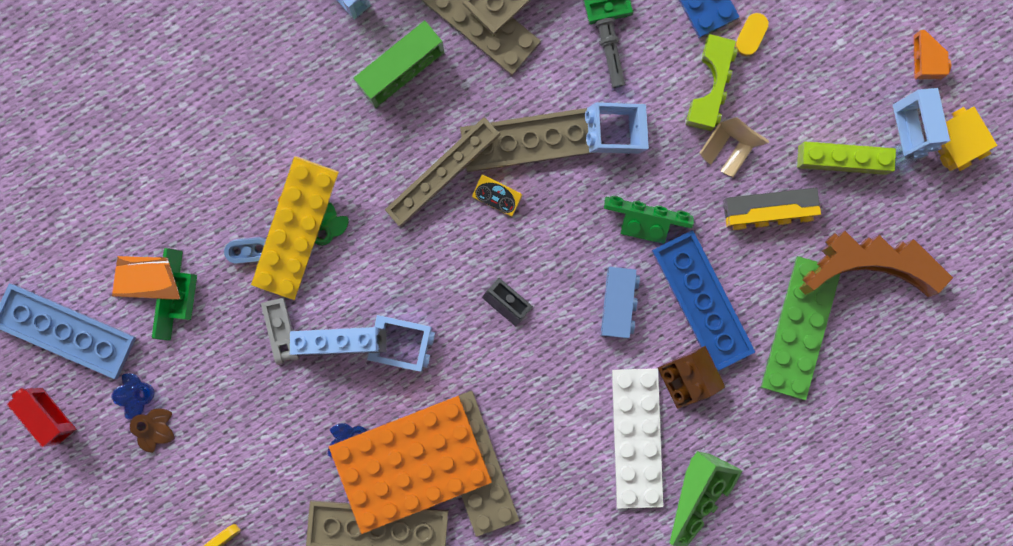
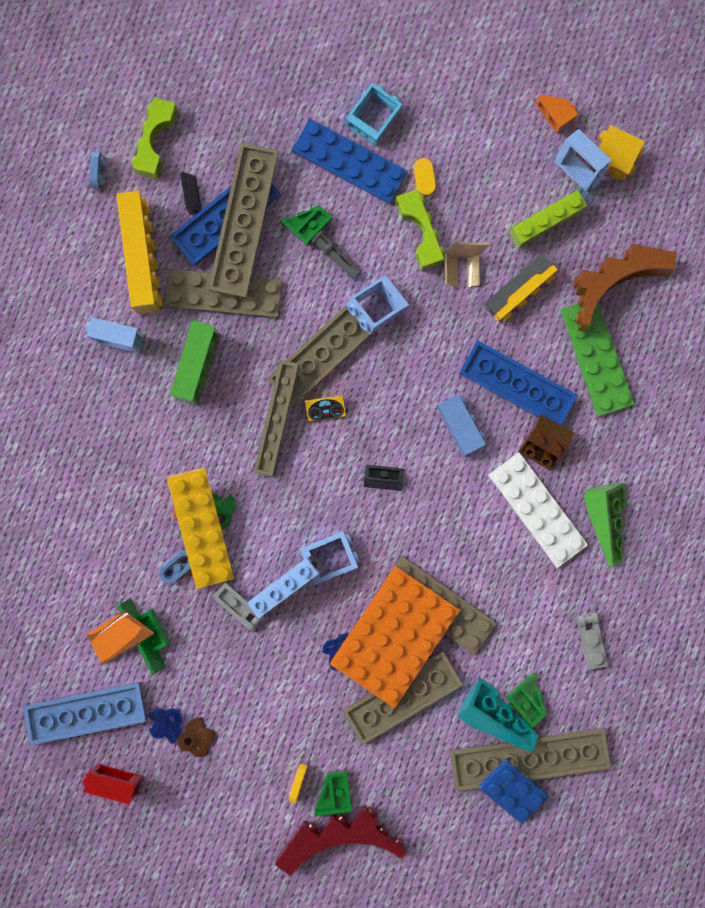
camera: 40 degrees left, 0 degrees up
(647, 221) = (441, 355): green bracket -> none

